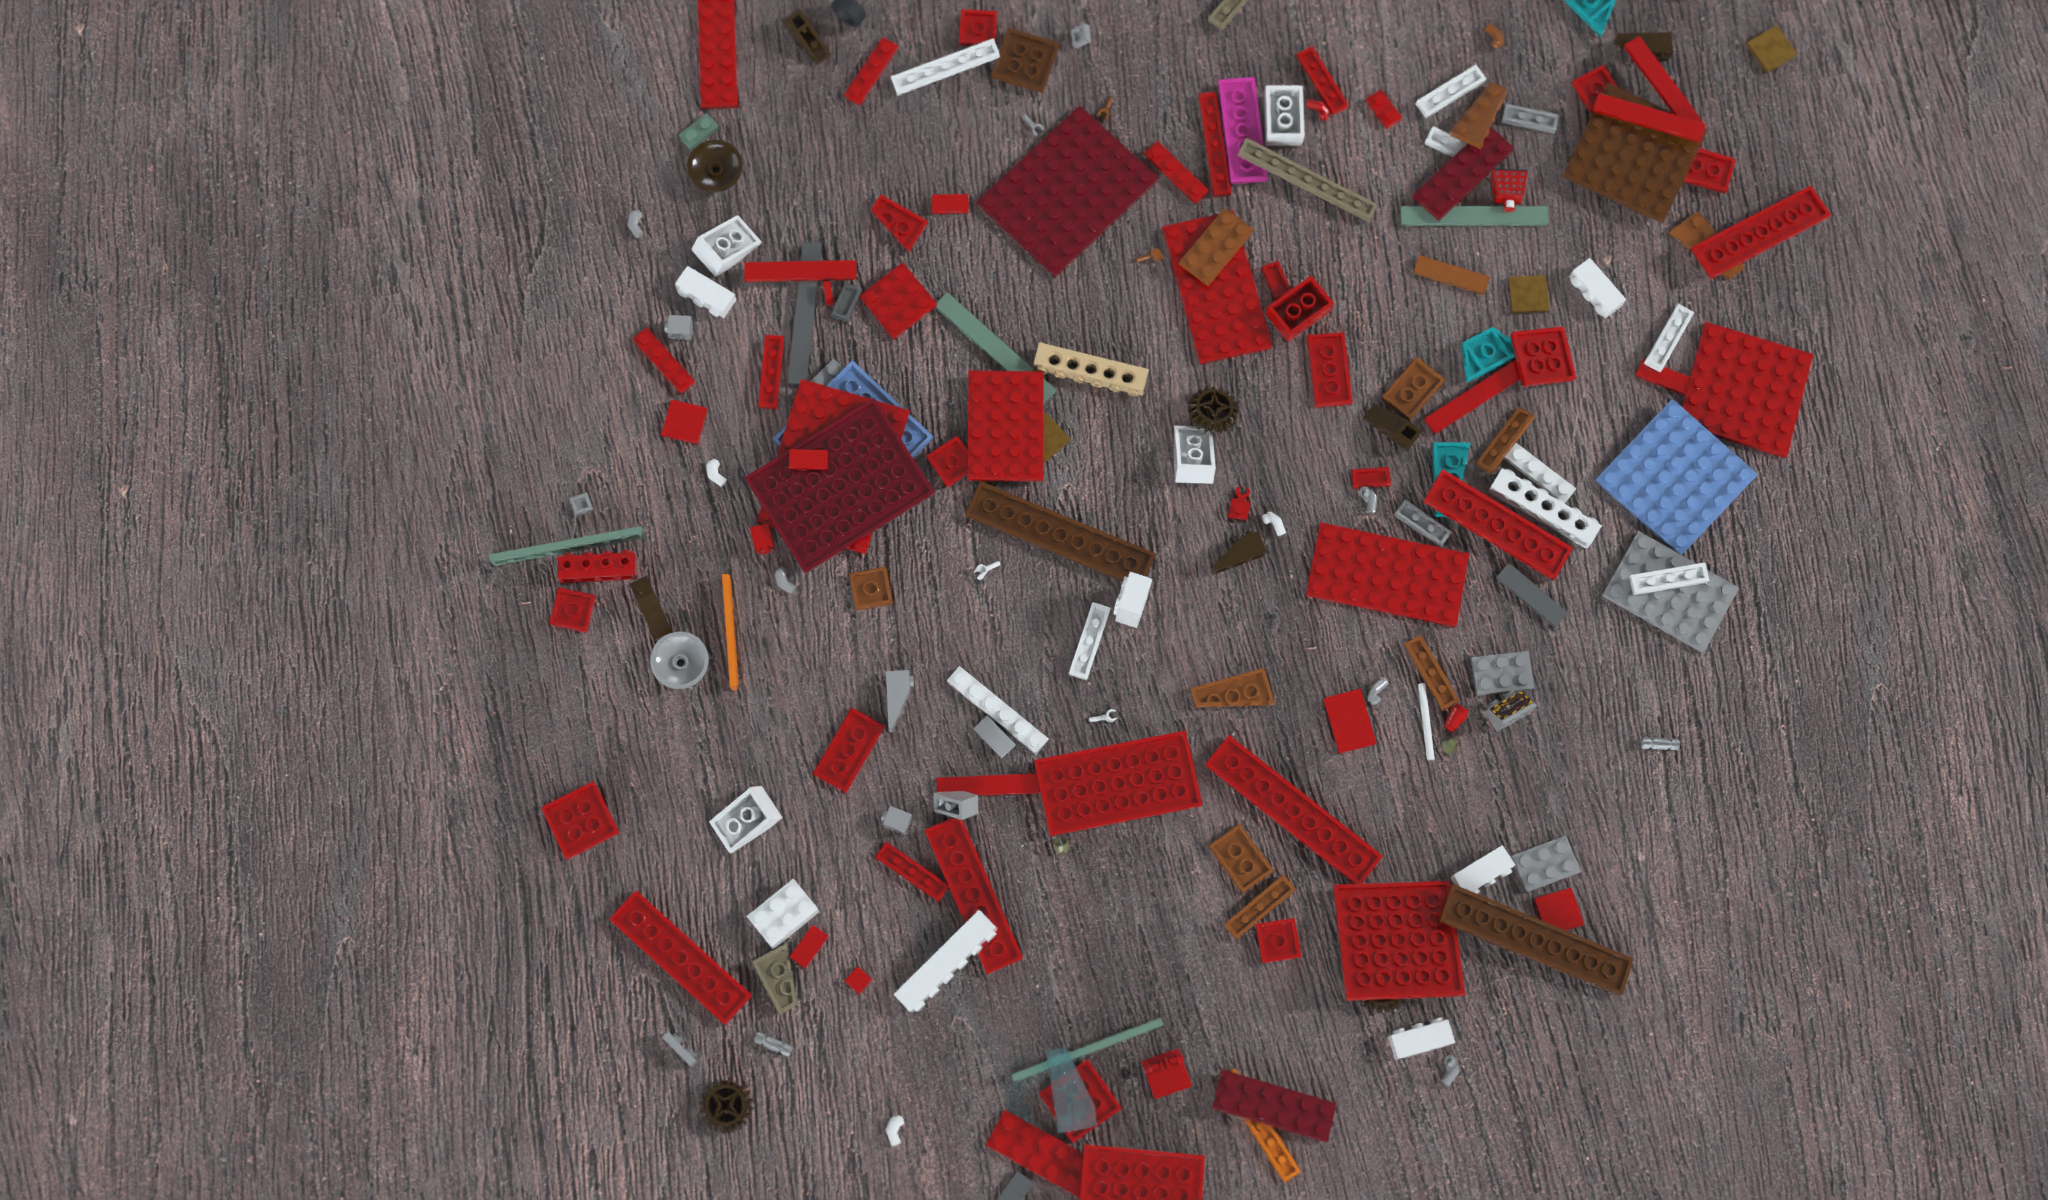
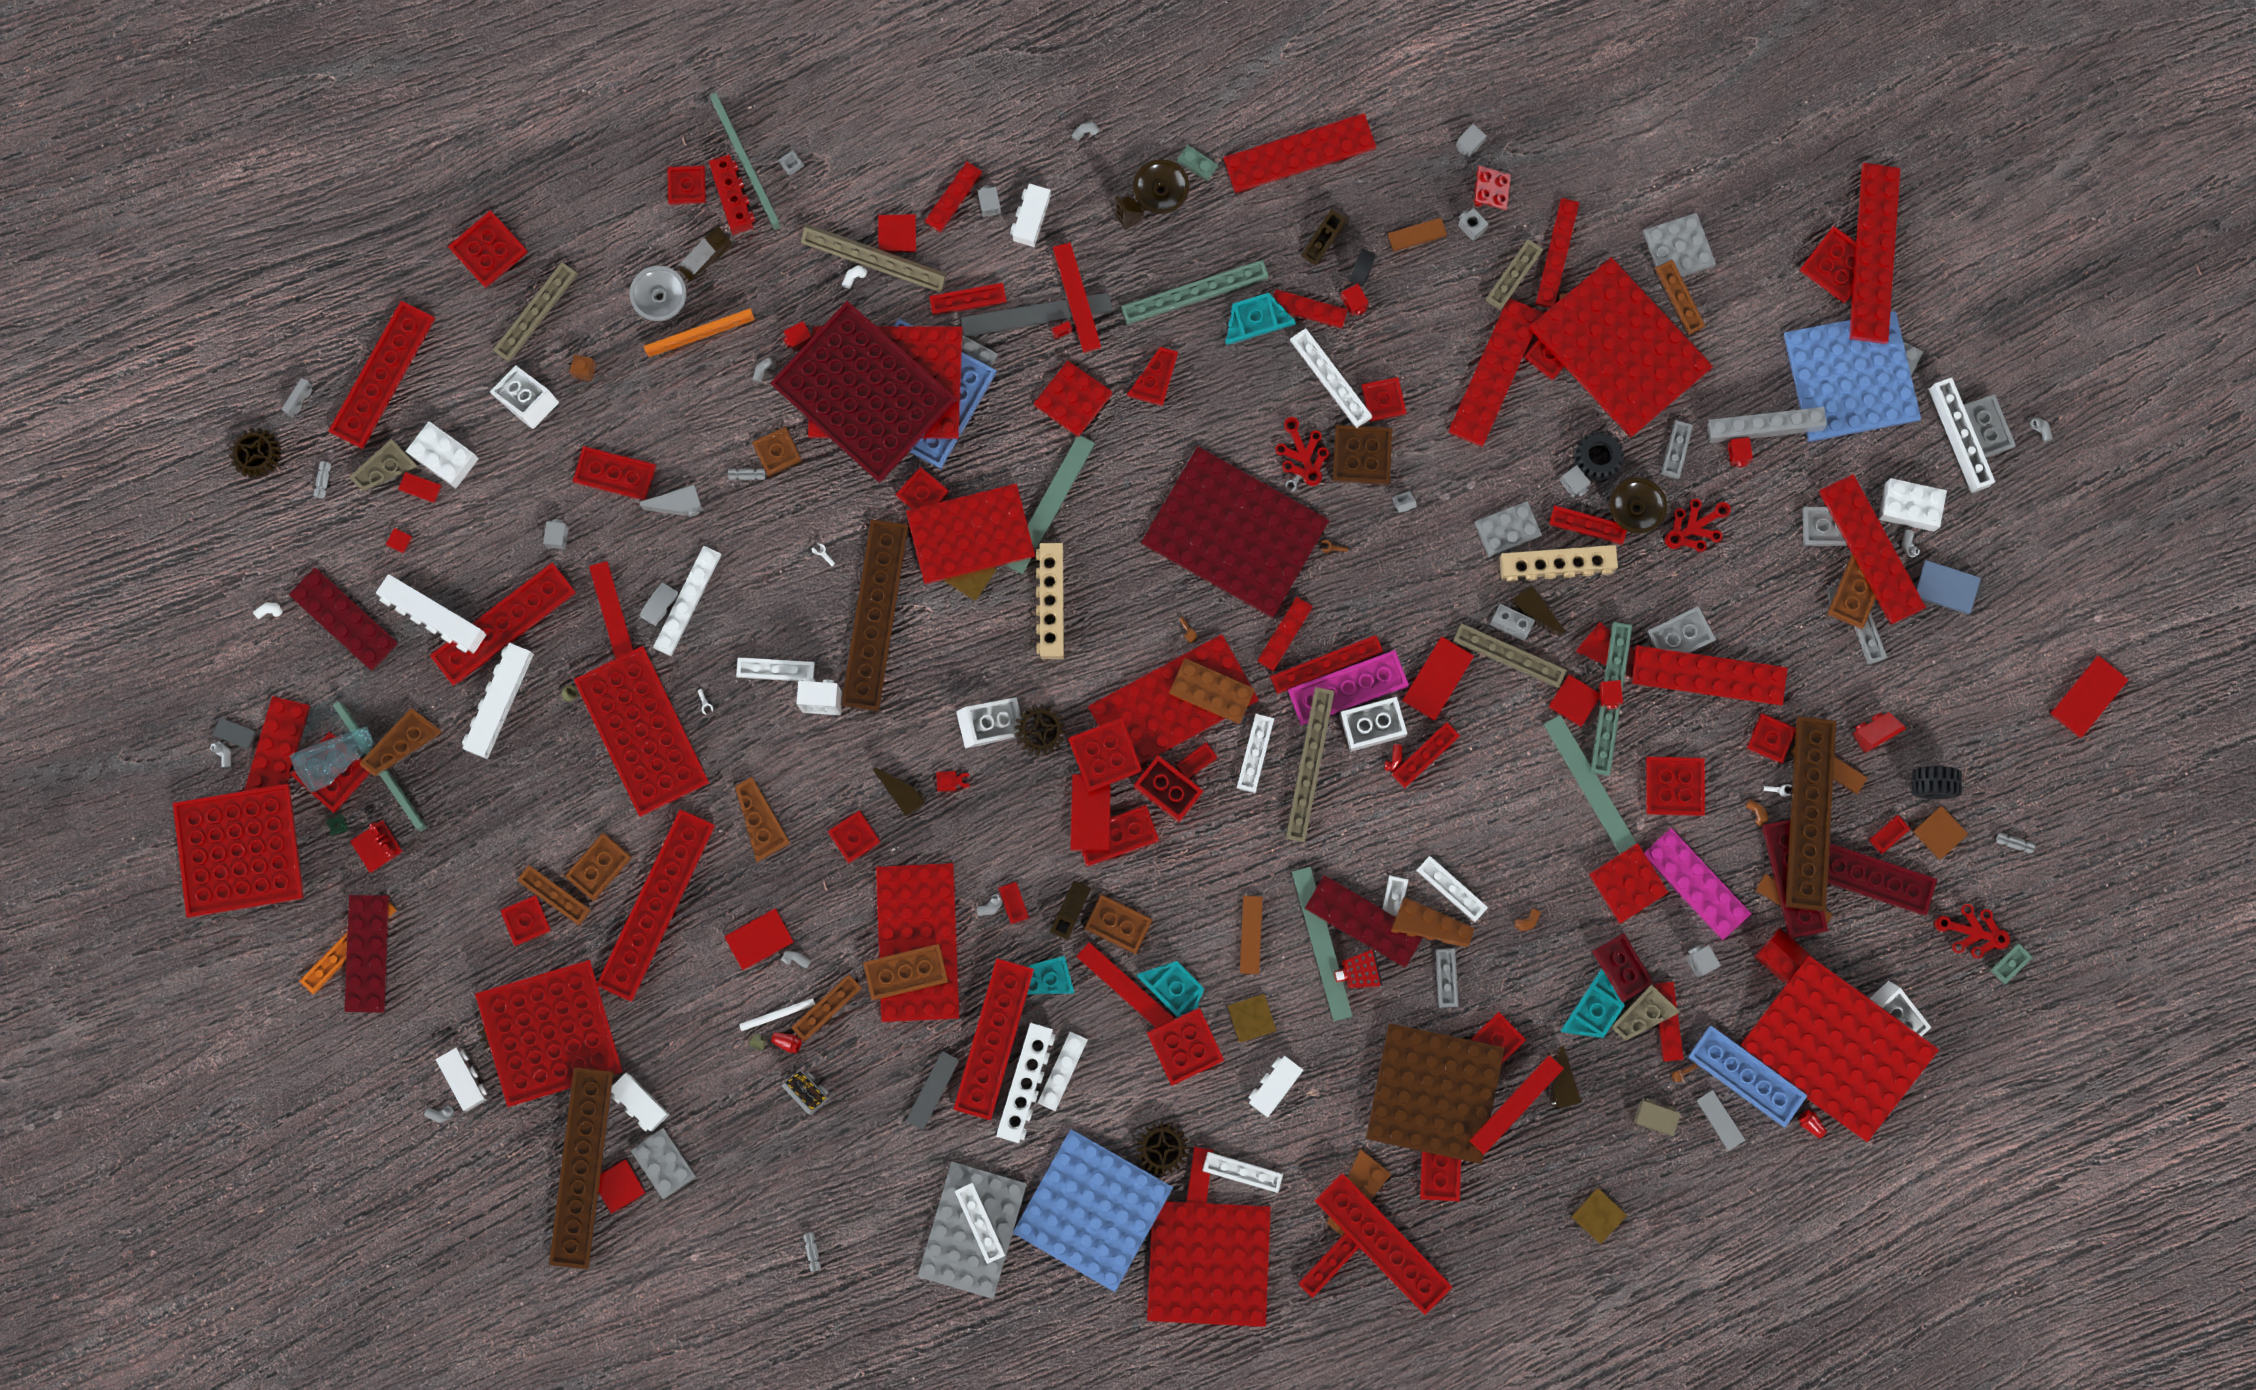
camera: 80 degrees right, 5 degrees up
(661, 788) = (535, 312): none -> dark tan plate
(703, 448) = (873, 258): none -> dark tan plate
(725, 245) = (1085, 221): white slope -> none
(732, 203) = (1128, 211): none -> dark brown slope
(733, 753) = (582, 368): none -> dark orange brick
(808, 459) = (877, 354): red tile -> none
(825, 167) = (1194, 292): none -> sand green tile
(846, 302) = (1059, 350): dark grey tile -> none
(867, 117) = (1256, 317): none -> teal wing
(876, 27) = (1354, 300): none -> red brick
(885, 622) = (746, 474): none -> light grey axle
(912, 871) = (512, 562): red tile -> none
(924, 1055) = (343, 619): none -> dark red plate
(950, 204) = (1189, 422): red tile -> none
(956, 804) = (583, 585): light grey slope -> none
(1009, 111) = (1303, 455): none -> red plant
(1051, 917) = (498, 700): none -> white brick
(1068, 1021) = (403, 739): none -> dark orange wing
(1130, 1104) = (331, 822): none -> clear green plate
(1253, 52) = (1438, 678): none -> red tile
(1253, 355) = (1105, 755): none -> red plate
(1271, 608) = (854, 837): none -> red tile
(1276, 521) = (942, 820): white arm -> none
(1283, 226) = (1255, 753): none -> white plate
(1303, 385) = (1090, 817): none -> red tile
(1383, 109) = (1413, 825): red plate -> none
(1417, 588) = (905, 972): none -> dark orange plate
(1422, 523) = (979, 965): light grey tile -> none
(1502, 673) = (845, 1078): light grey plate -> none
(1505, 440) = (1087, 1028): dark orange tile -> none
(1636, 387) = (1180, 1147): none -> dark brown gear
(1649, 117) = (1471, 1097): red tile -> none
(1769, 285) = (1328, 1265): none -> red plate

